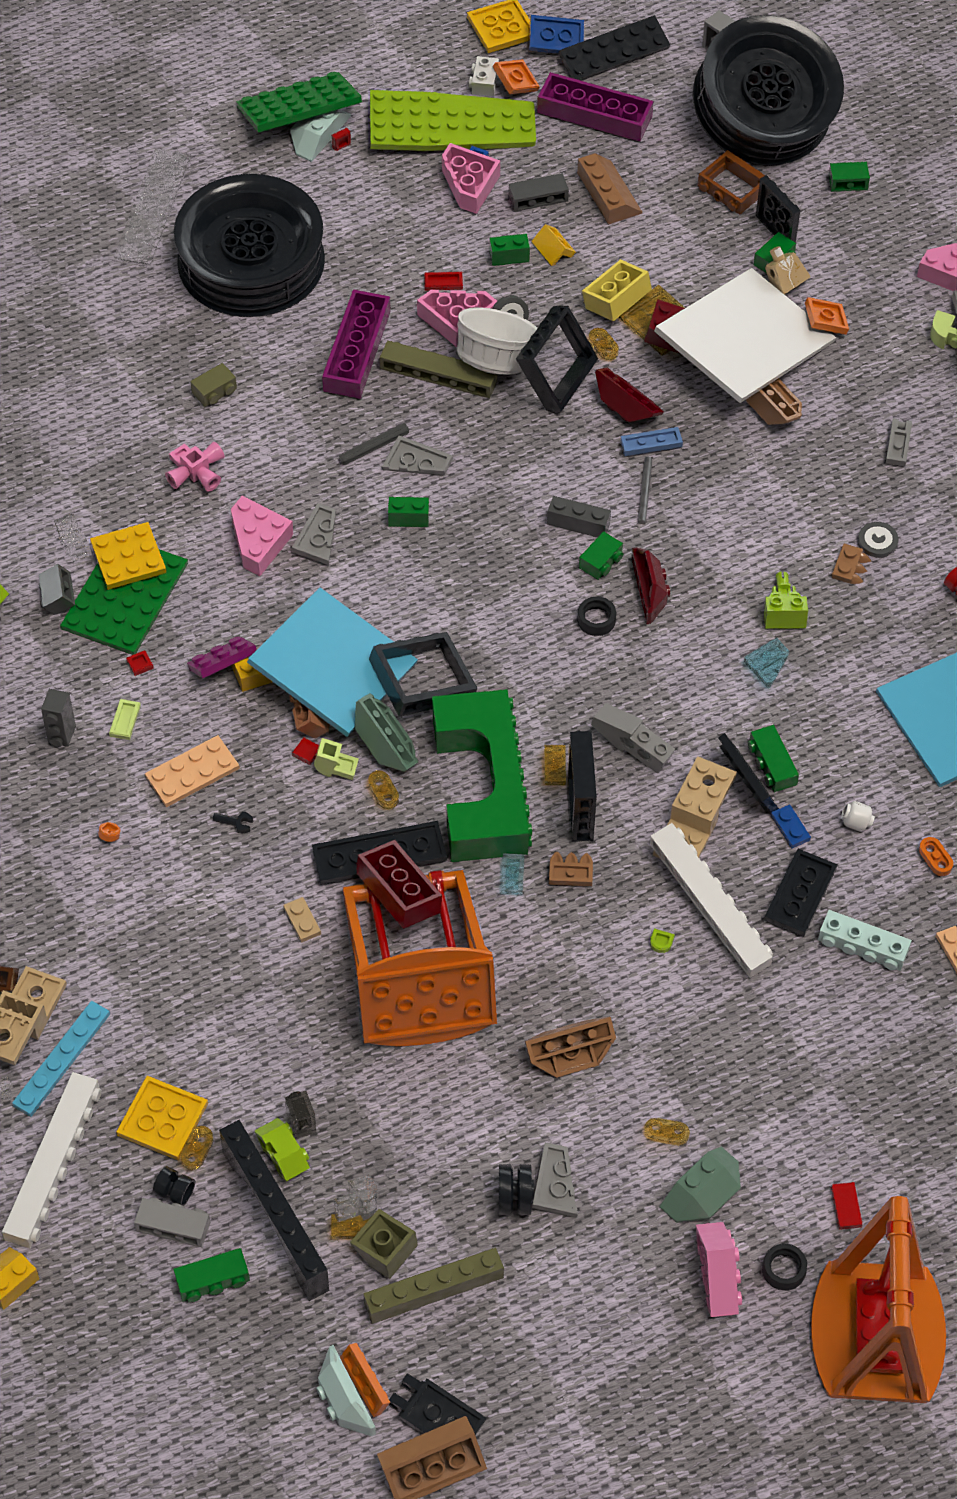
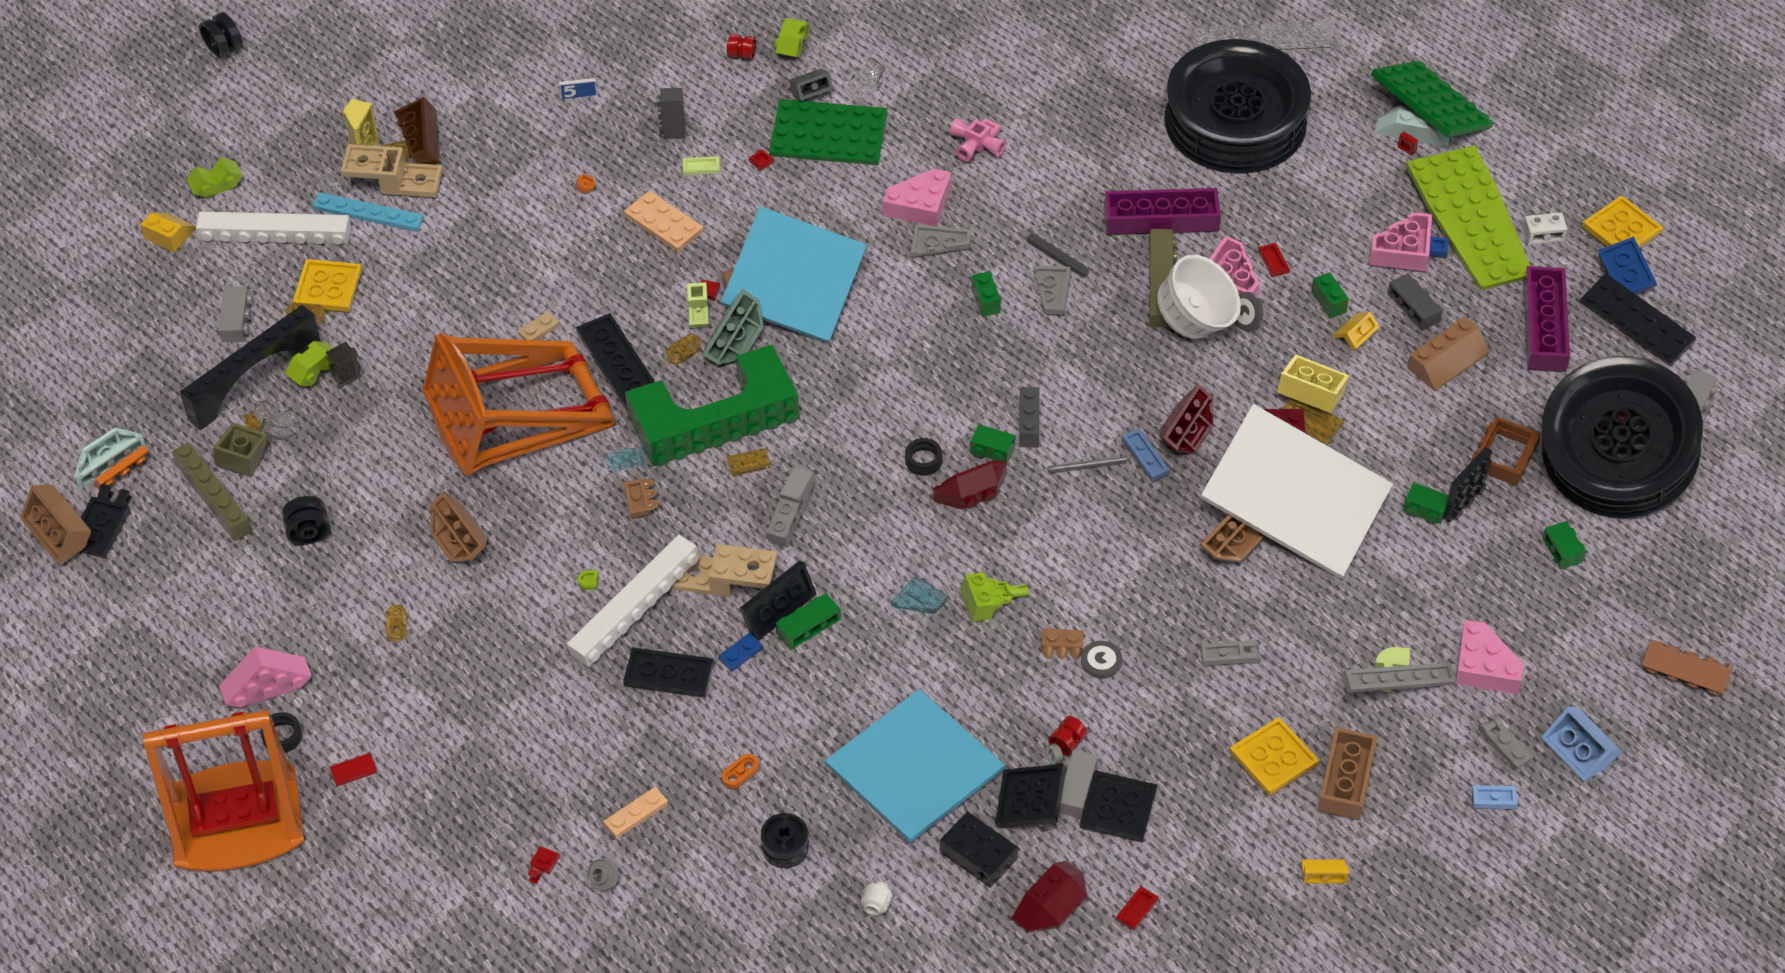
camera: 75 degrees right, 5 degrees down
(128, 555) = (862, 118): yellow plate -> none
(173, 1186) = (265, 305): black wheel -> none
(212, 1275) = (192, 349): green brick -> none
(213, 385) = (1074, 128): olive brick -> none
(221, 657) = (772, 200): magenta plate -> none
(236, 821) = (622, 262): black bar -> none
(399, 884) = (571, 367): dark red brick -> none
(419, 702) = (792, 368): black window -> none
(516, 76) = (1554, 248): orange plate -> none
(554, 1183) = (326, 553): light grey wing -> none
(581, 786) = (703, 448): black window -> none
(586, 358) = (1188, 377): black window -> none
(604, 345) = (1248, 394): clear yellow plate -> none
(704, 1188) = (348, 659): sand green wedge -> none
(785, 270) = (1401, 512): tan torso -> none
(826, 315) = (1362, 559): orange plate -> none
(857, 816) = (764, 699): white head -> none
(864, 940) = (628, 729): light aqua brick -> none

